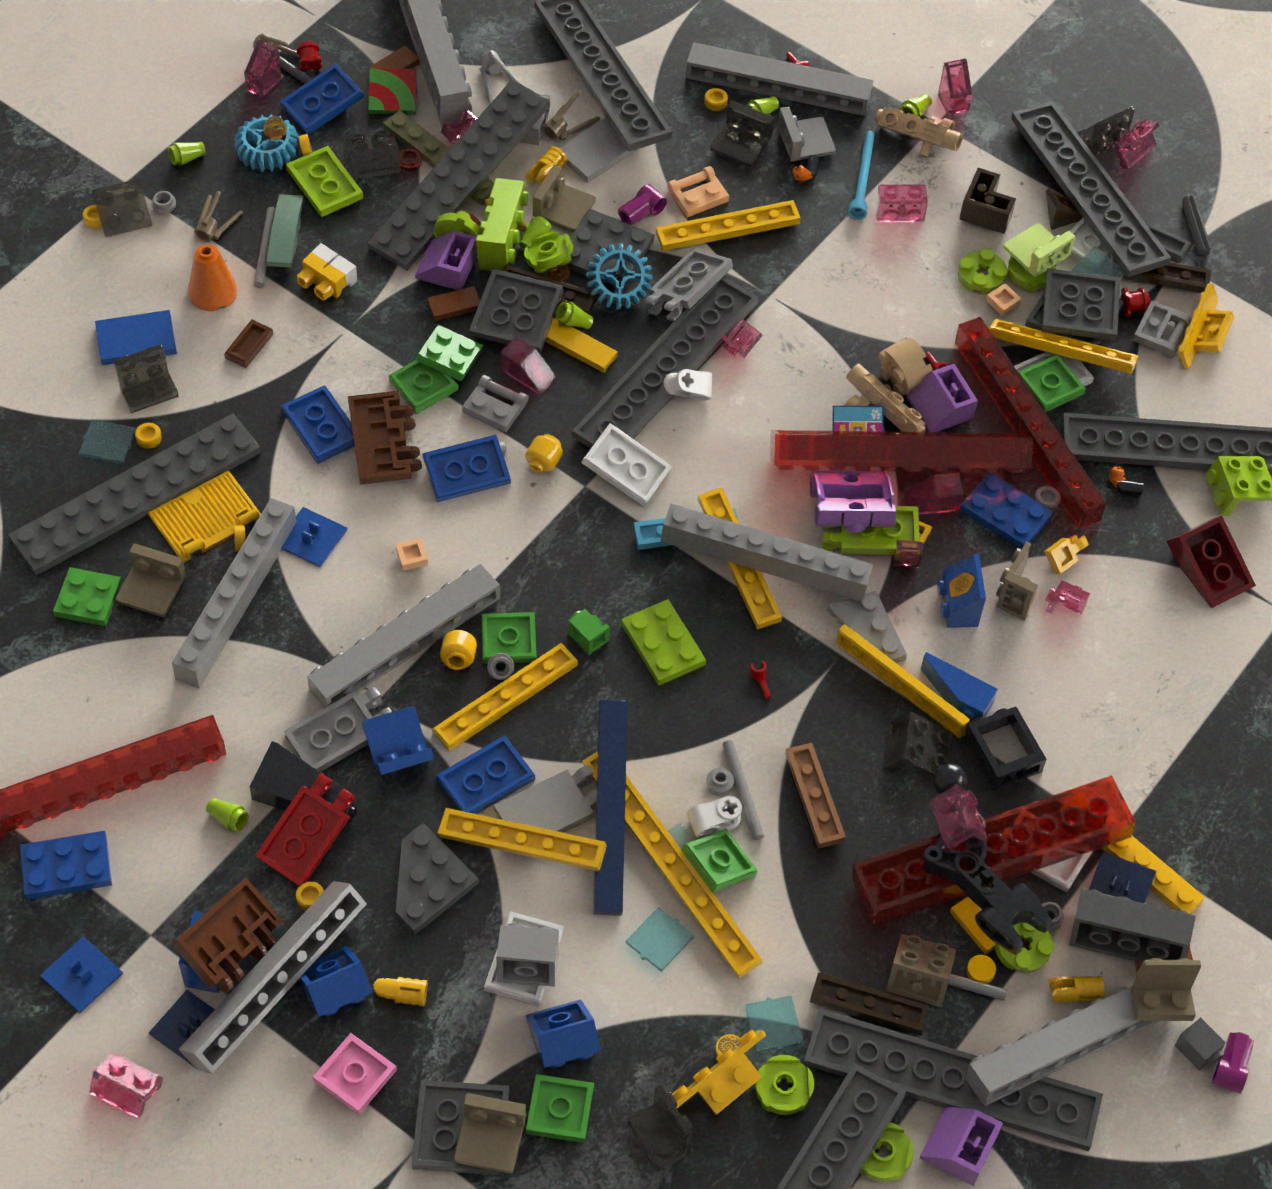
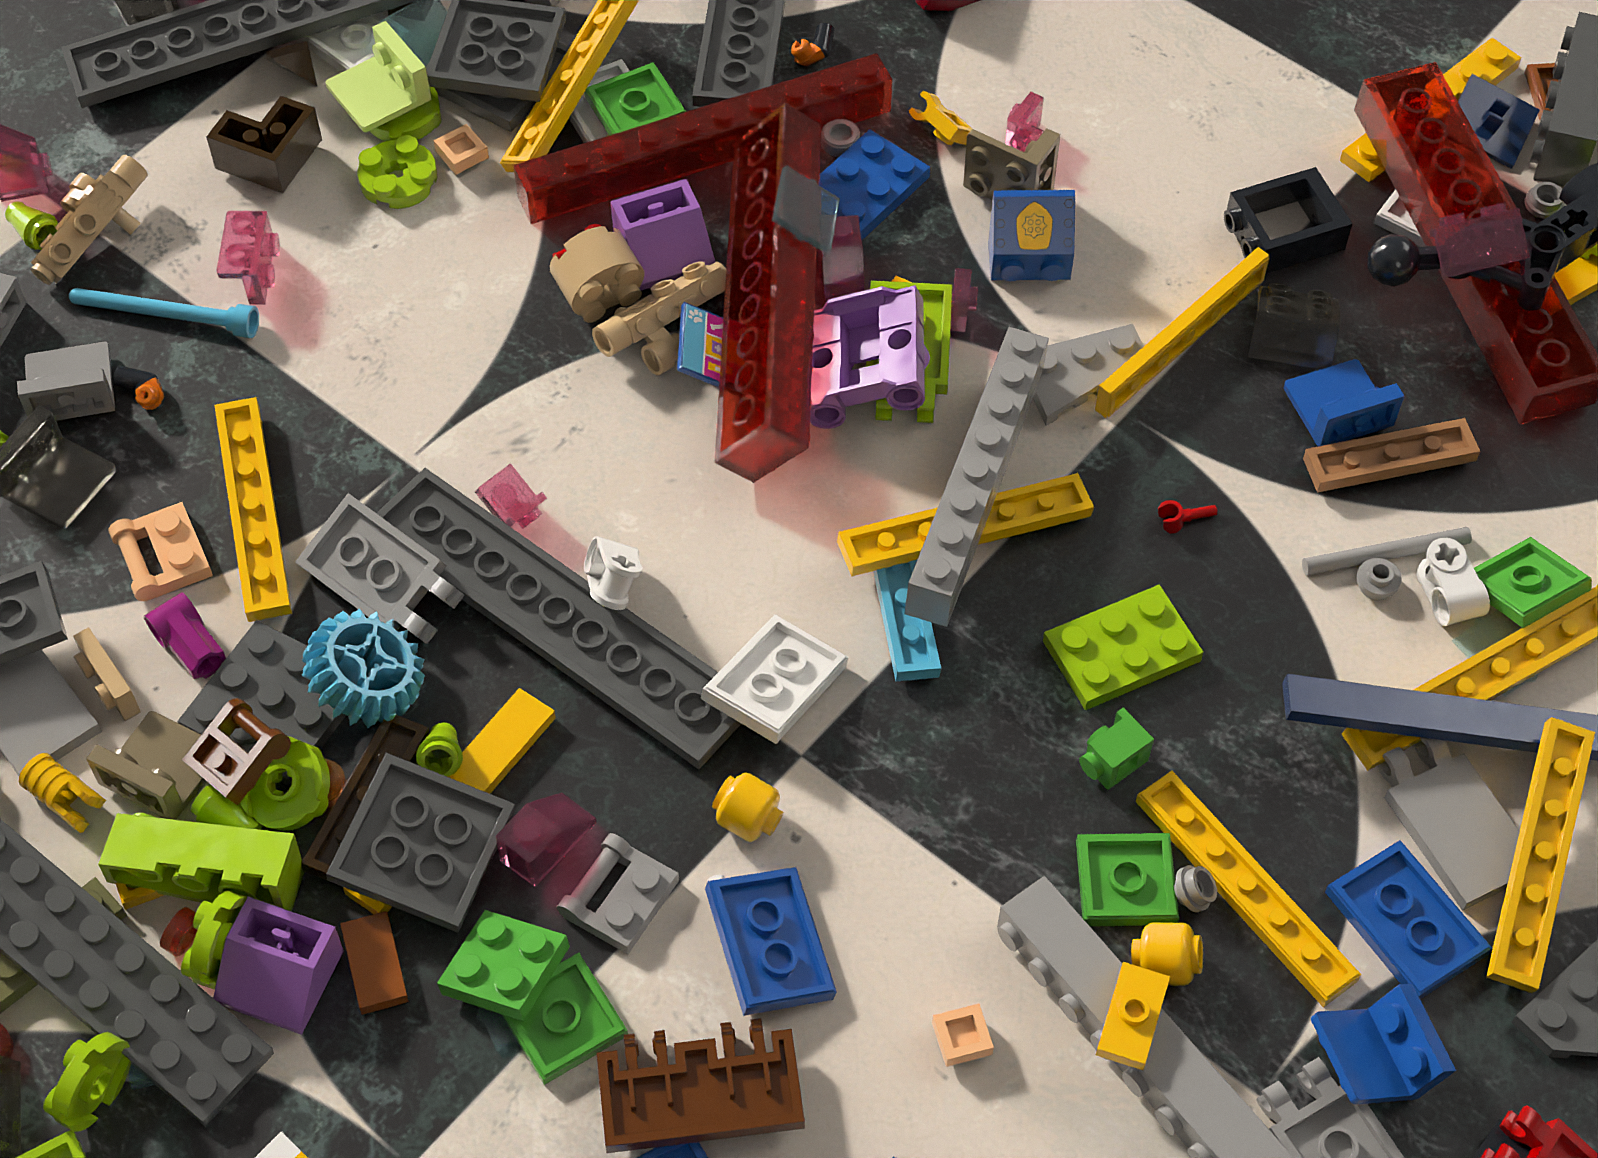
camera: 85 degrees left, 0 degrees up
(383, 190) = (91, 1076): none -> lime plate
(412, 619) = (1132, 1016): none -> yellow plate
(562, 225) = (227, 763): none -> reddish brown plate
(616, 175) = (112, 687): none -> tan plate
(854, 768) = (1343, 403): none -> blue bracket
(950, 454) = (806, 209): none -> clear light blue piece
(959, 688) = (1195, 263): blue slope -> none

